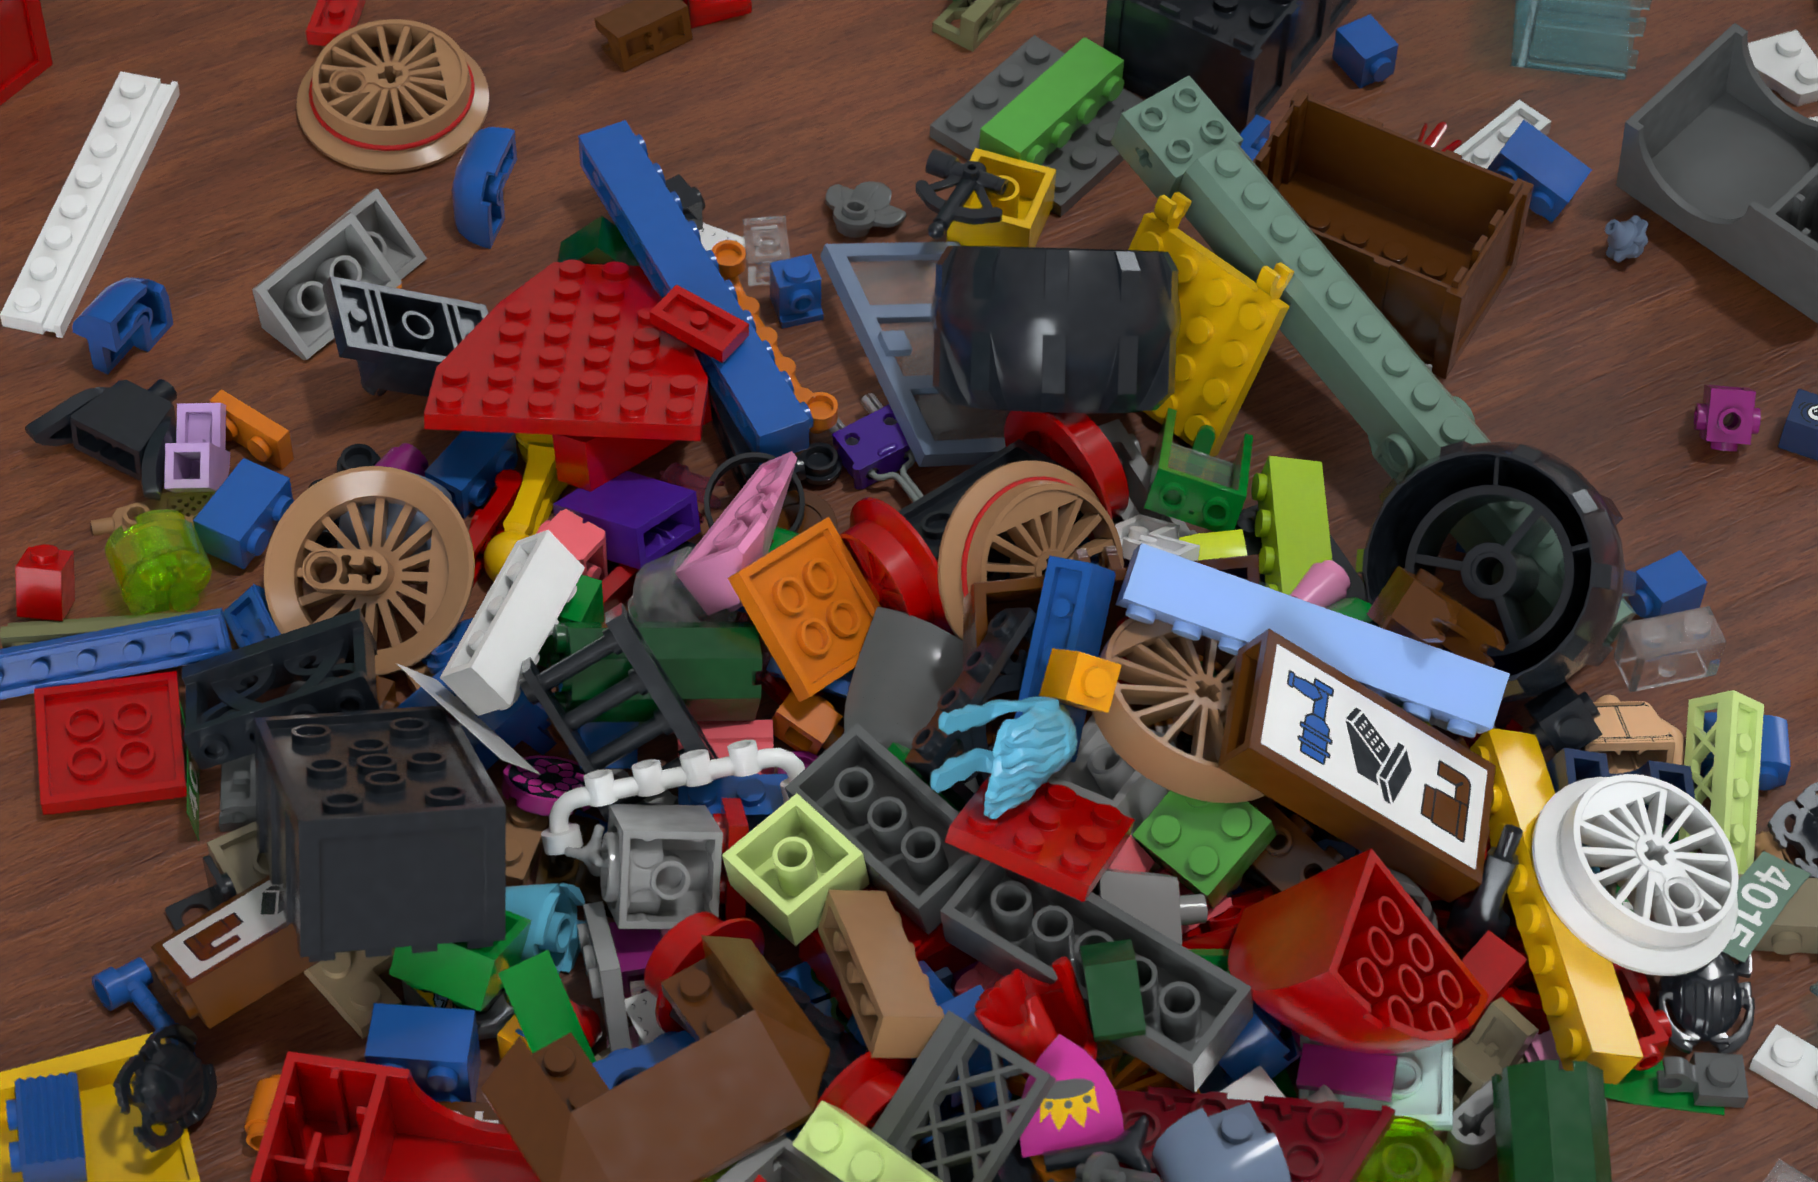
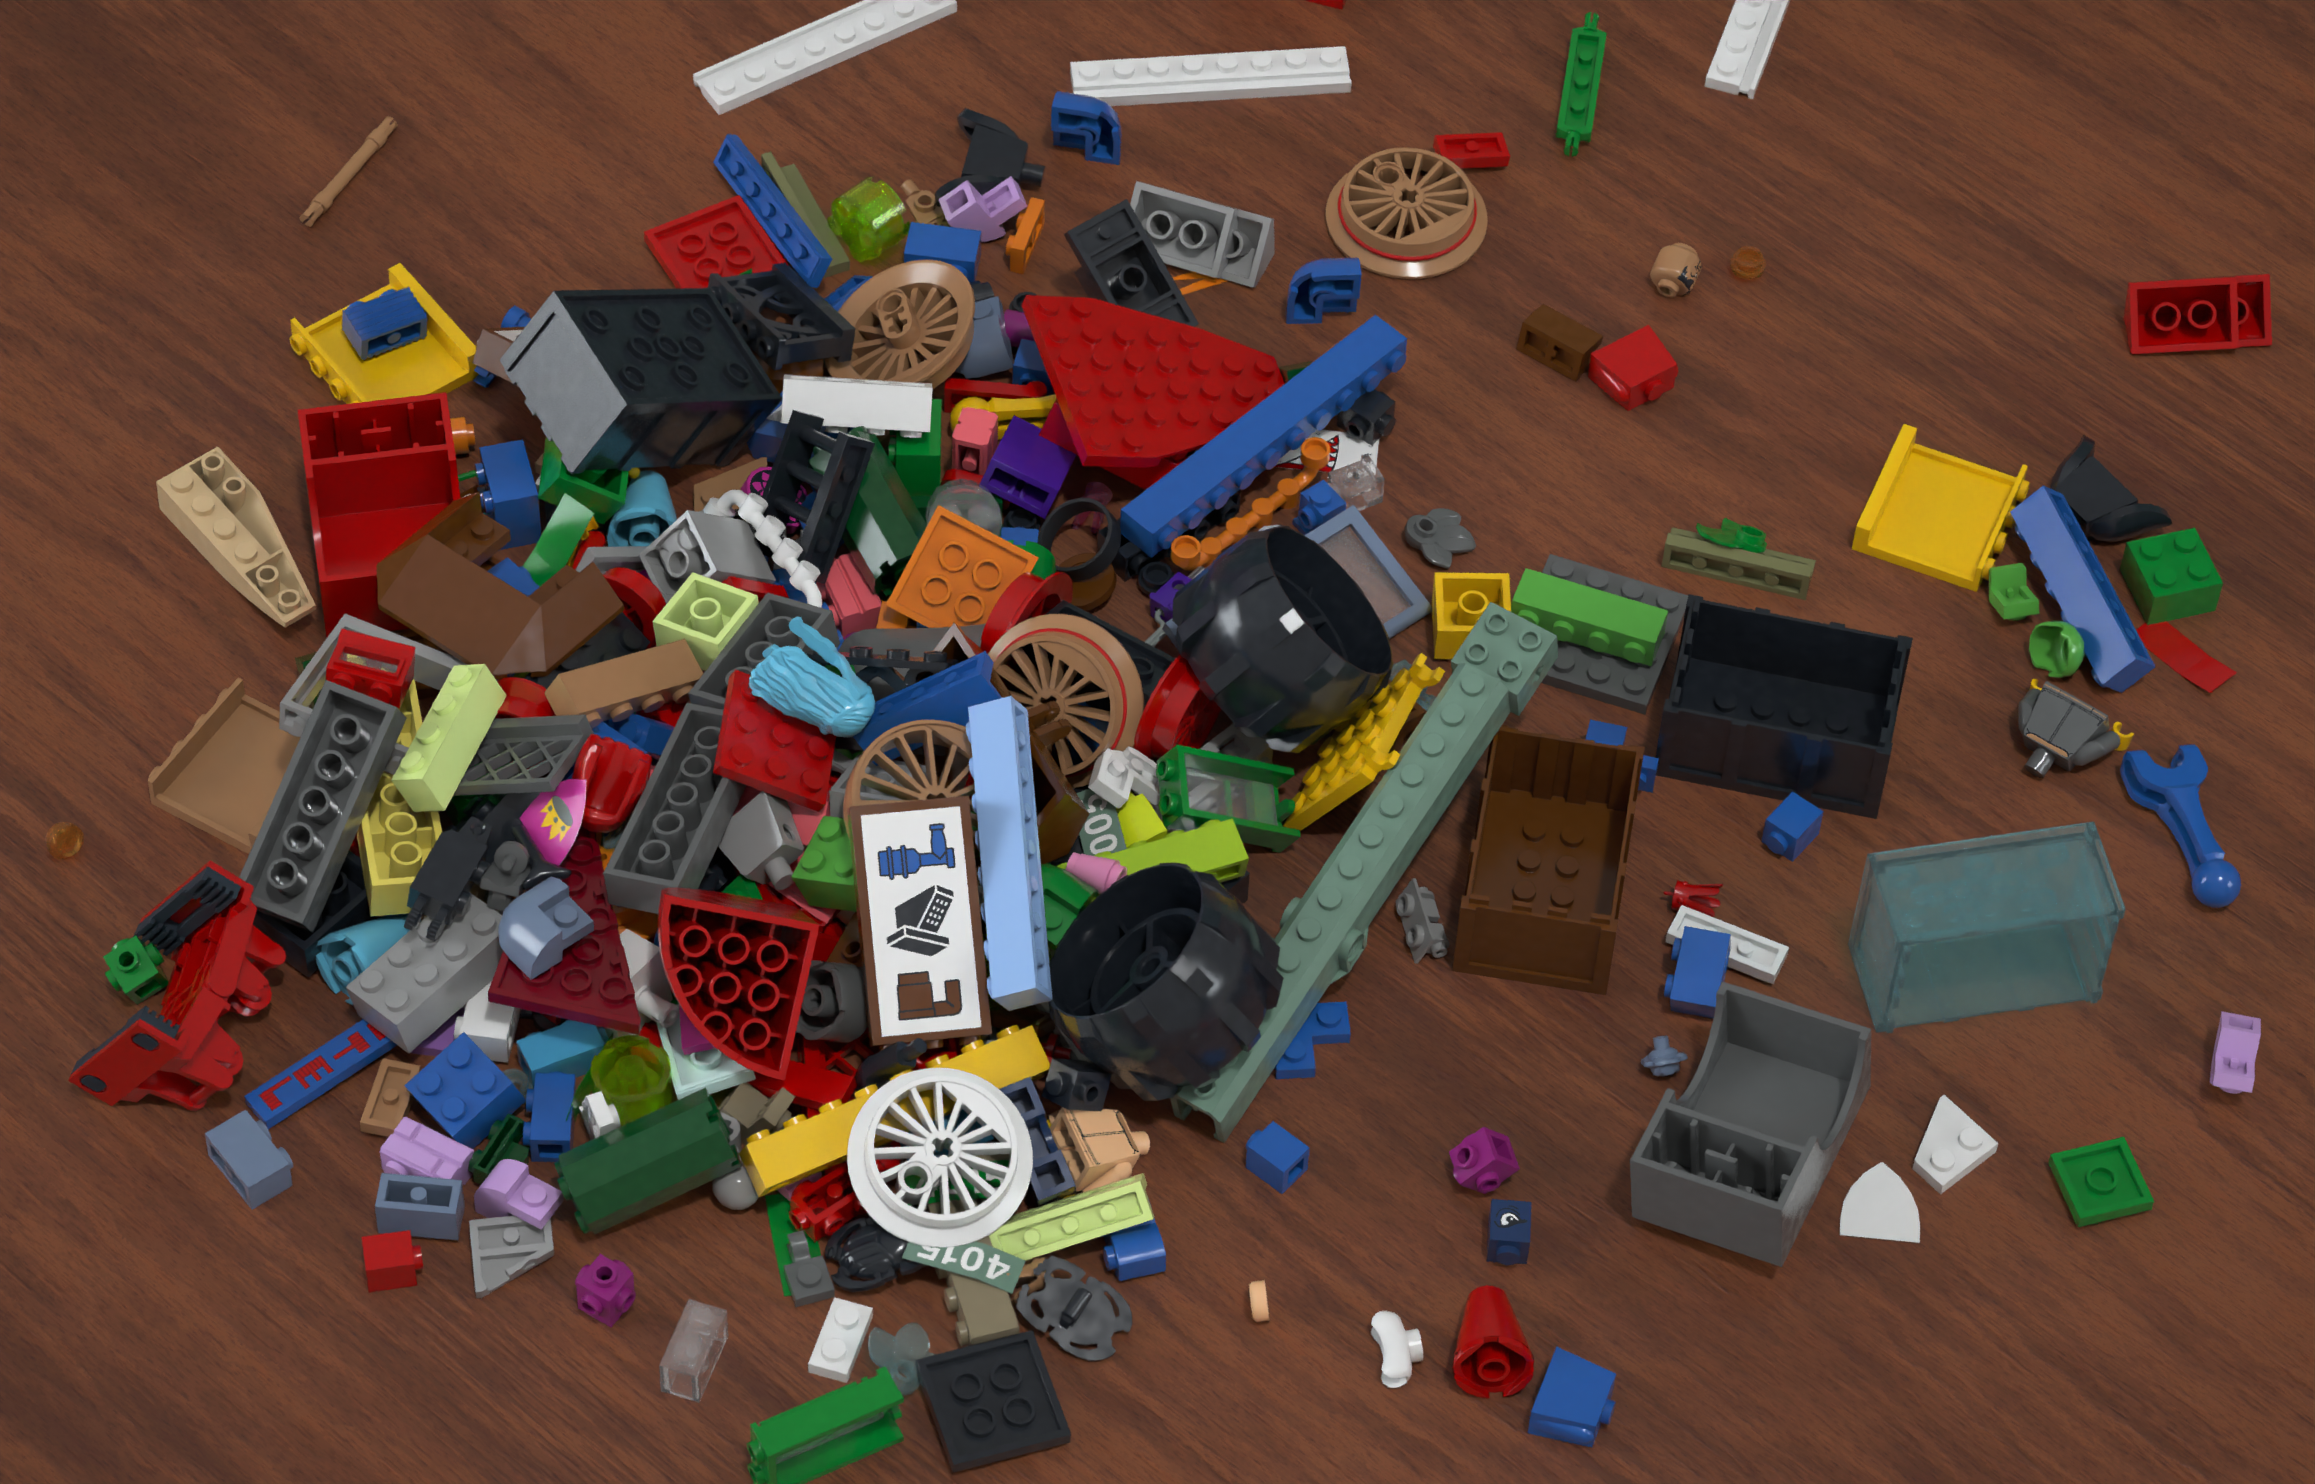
camera: 70 degrees right, 0 degrees up
(45, 583) = (828, 167): red brick -> none
(166, 1086) = (434, 365): black shield -> none
(468, 719) = (760, 426): white sticker -> none
(699, 323) = (1205, 436): red plate -> none
(737, 536) = (1017, 520): bright pink wedge -> none
(968, 178) = (1463, 574): black piece -> none
(1080, 680) = (890, 706): light orange brick -> none
(1113, 990) = (645, 804): dark green slope -> none
(1421, 611) = (1079, 936): reddish brown piece -> none
(1669, 649) = (1212, 1167): clear brick -> none

